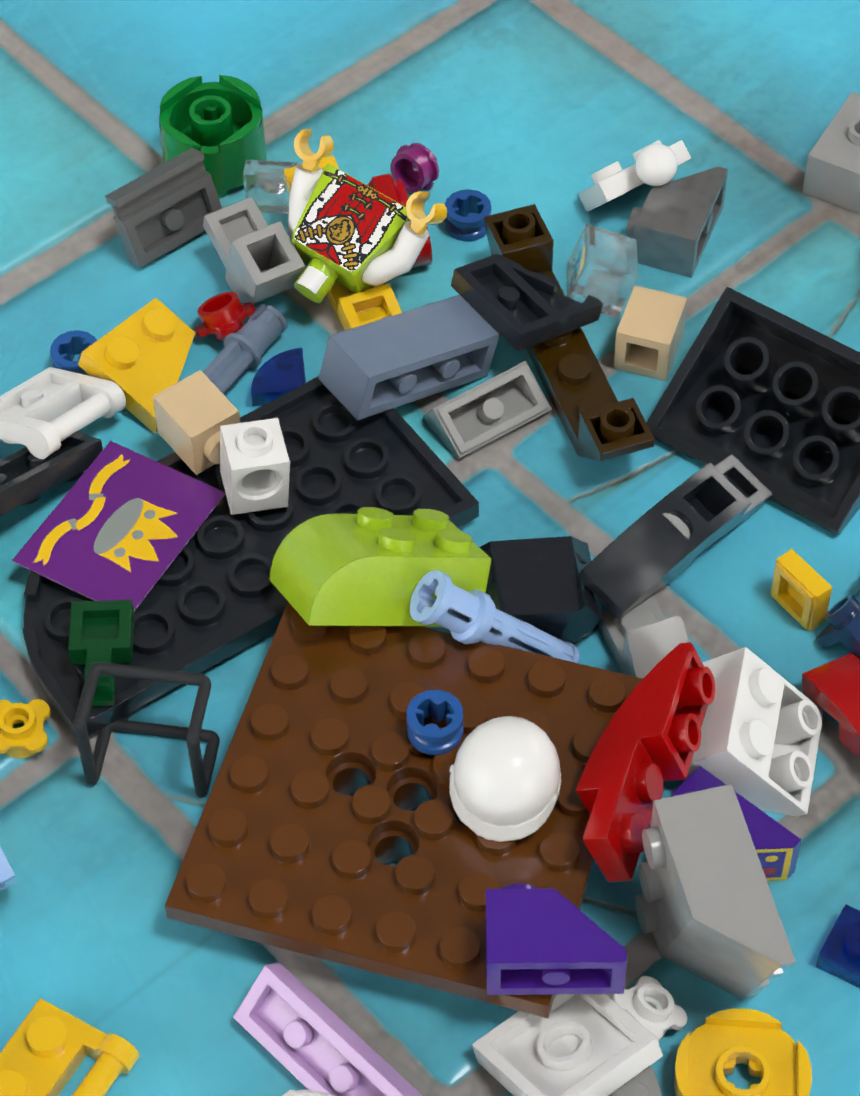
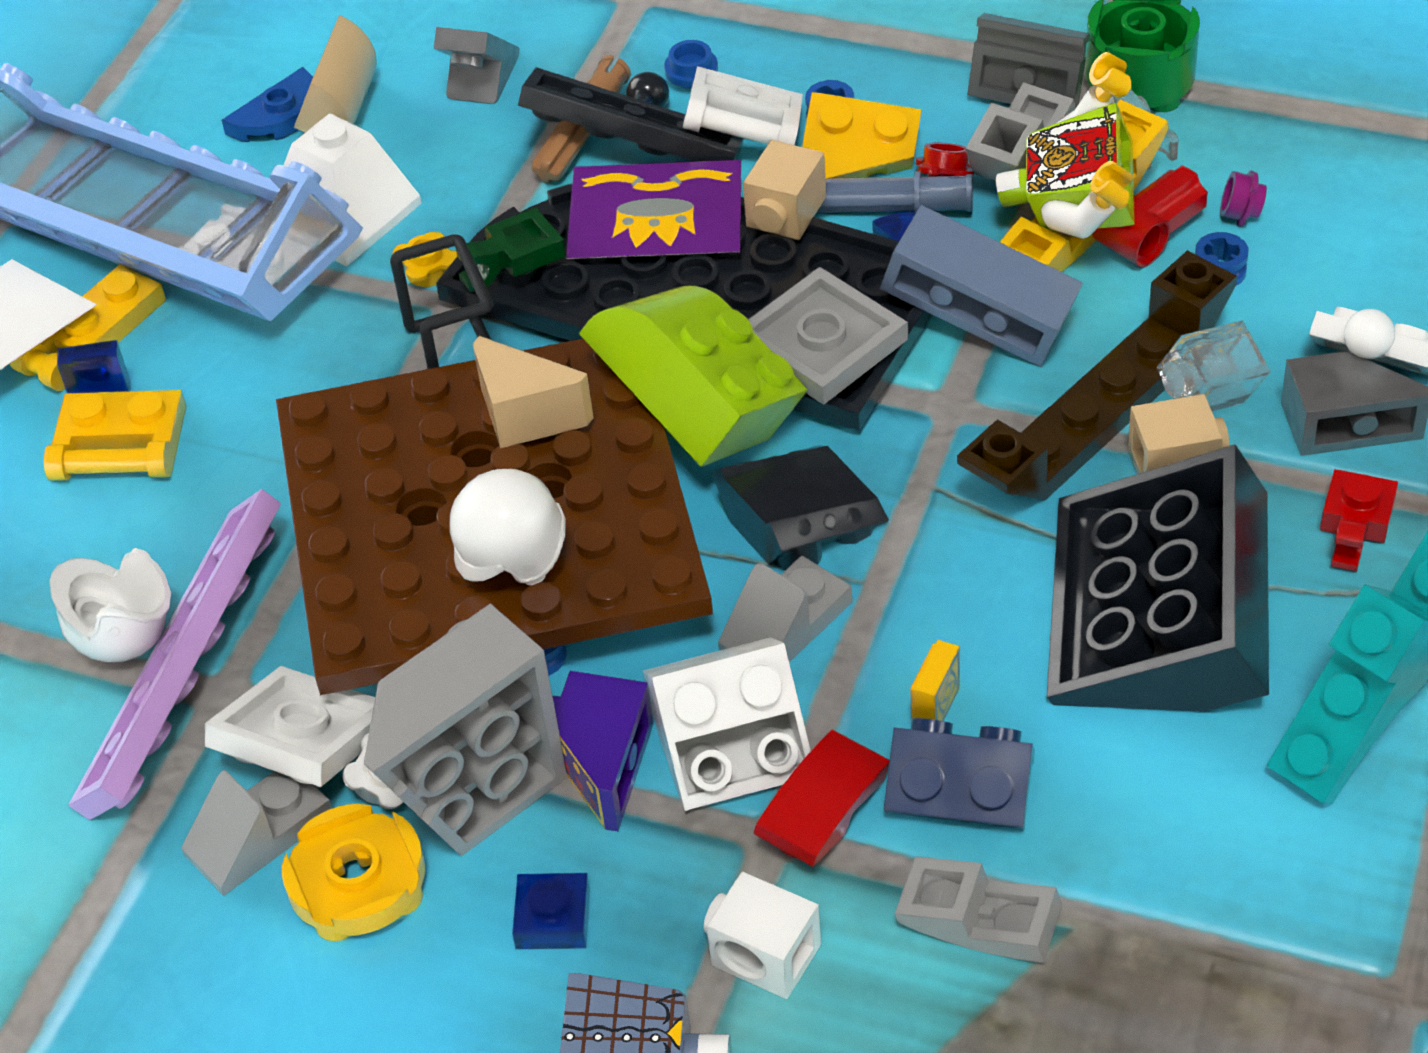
camera: 65 degrees right, 5 degrees down
(254, 466) = (757, 241): white brick -> none
(343, 699) = (529, 393): none -> tan slope
(390, 469) = (828, 332): none -> light grey plate
(439, 706) = (545, 449): blue bush -> none
(474, 618) = (681, 443): light blue pin -> none
(488, 411) = (990, 381): light grey slope -> none
(521, 302) = (1111, 328): black wing -> none
(547, 946) = (344, 625): dark purple slope -> none
(640, 748) = (621, 616): red slope -> none
(673, 534) = (926, 554): black slope -> none
(778, 272) = (1357, 511): none -> red plate

